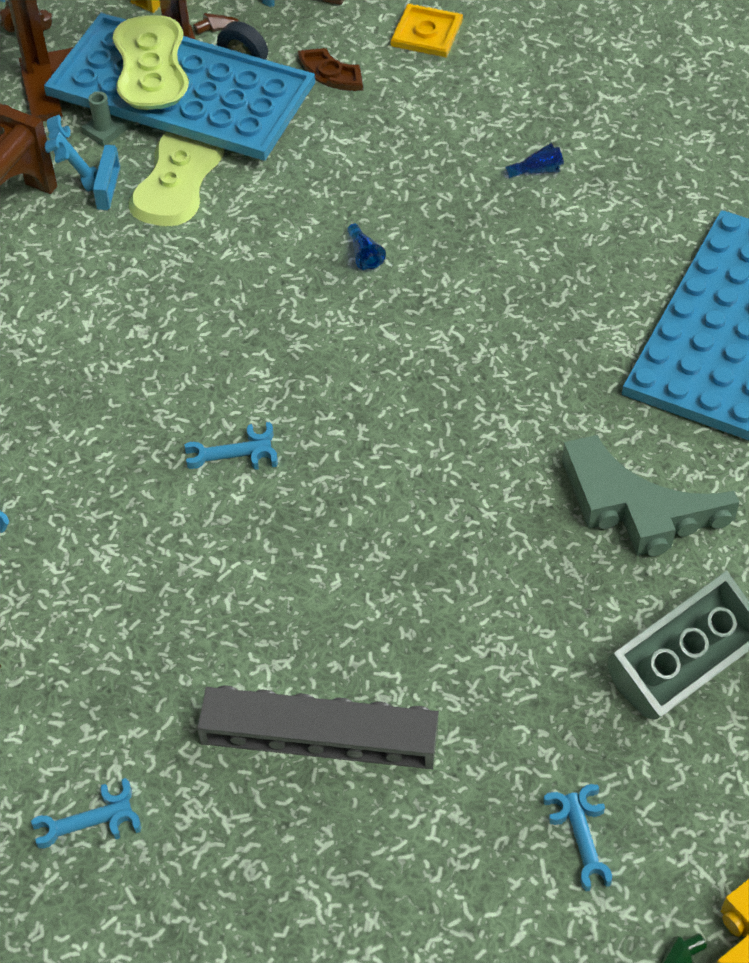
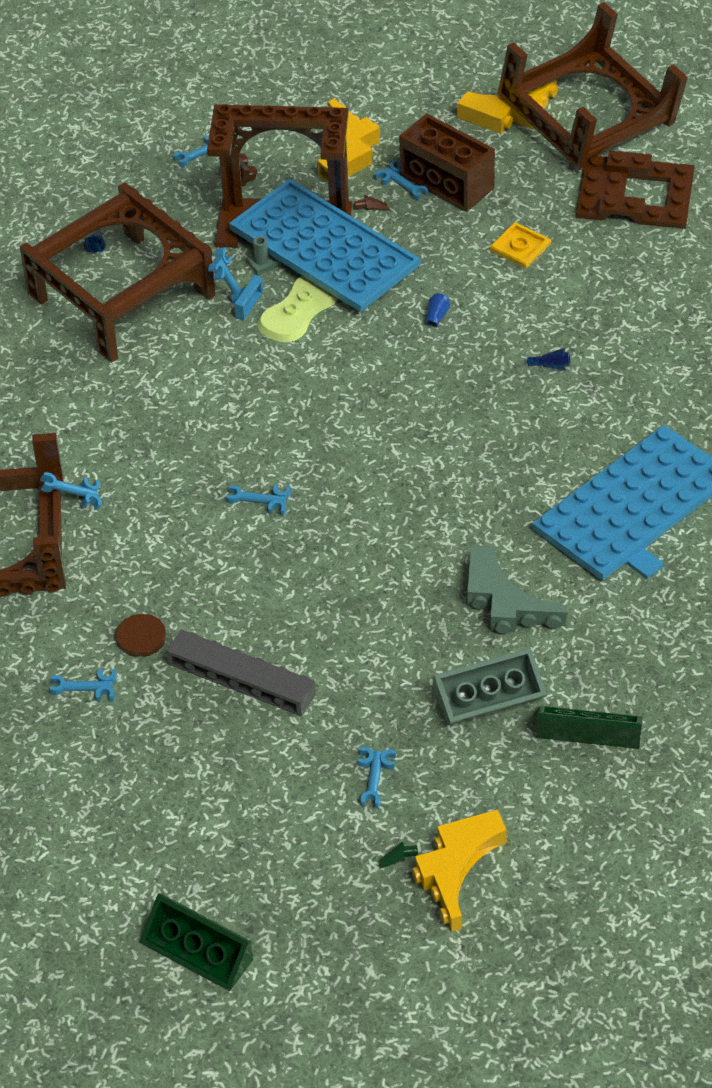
camera: 20 degrees right, 5 degrees down
(143, 710) = (141, 635): none -> reddish brown tile
(151, 67) = (305, 230): yellowish green plate -> none
(243, 39) = (380, 222): black bush -> none
(331, 71) = (436, 259): reddish brown tile -> none
(361, 132) = (437, 308): none -> blue cone
(367, 251) = (403, 392): clear blue cone -> none

